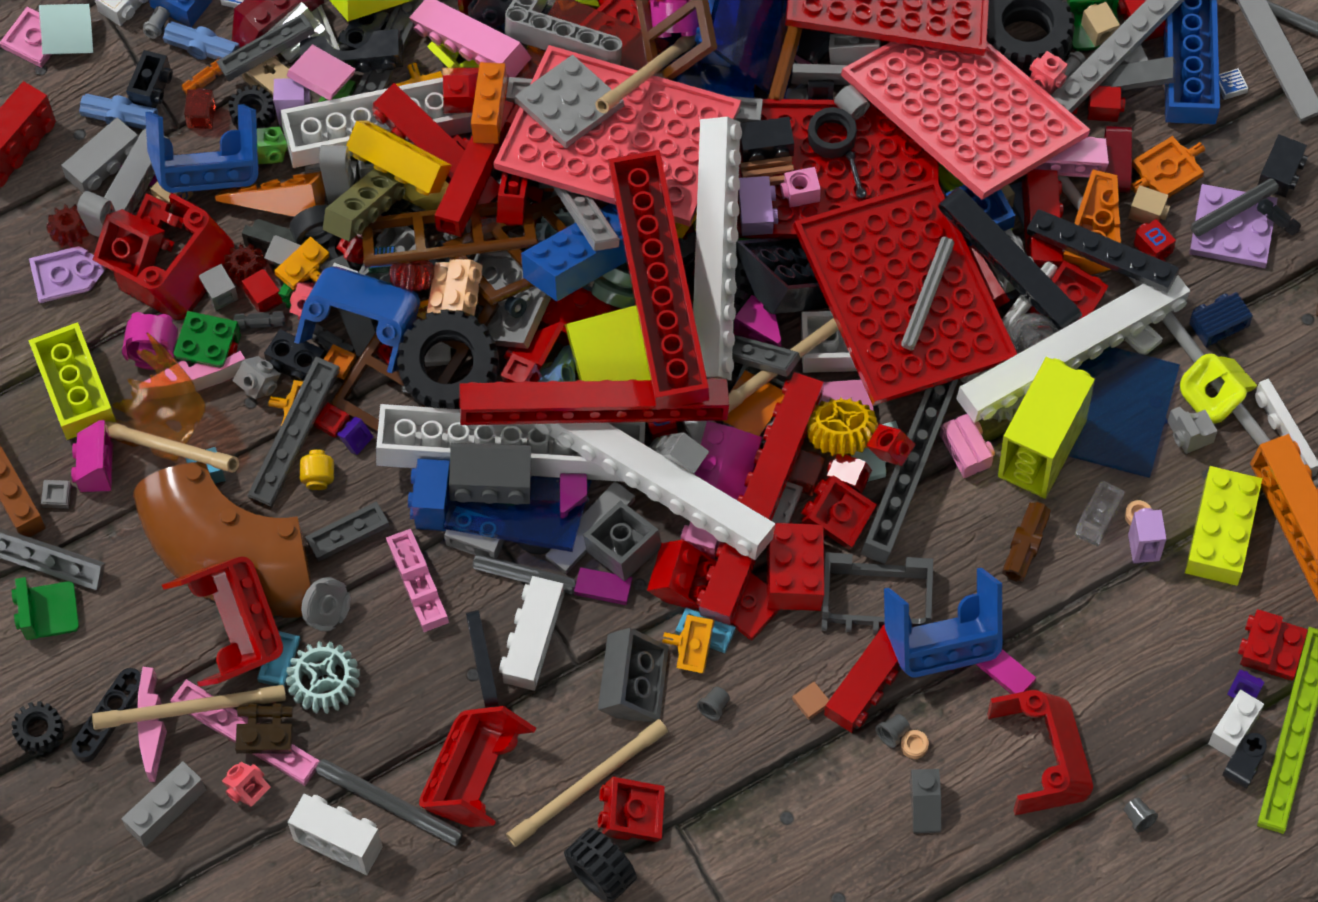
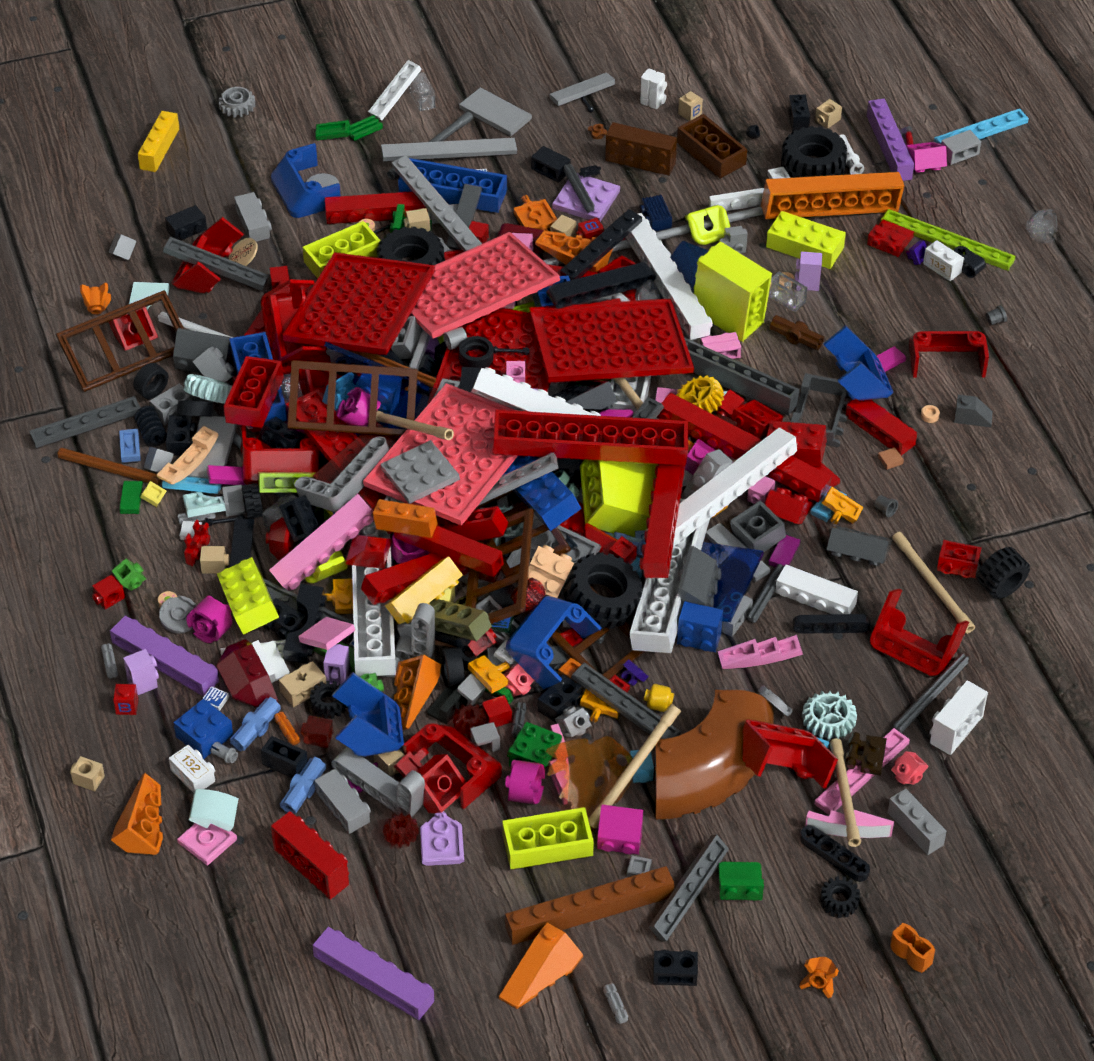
camera: 80 degrees left, 15 degrees down
(265, 47) = (284, 672): dark grey tile -> none
(347, 531) = (708, 680): dark grey plate -> none
(572, 492) = (717, 548): magenta tile -> none
(890, 444) = (715, 370): red brick -> none
(893, 730) = (921, 420): dark grey piece -> none
(927, 293) = (619, 325): light grey axle -> none
(1049, 72) = (454, 245): coral brick -> none

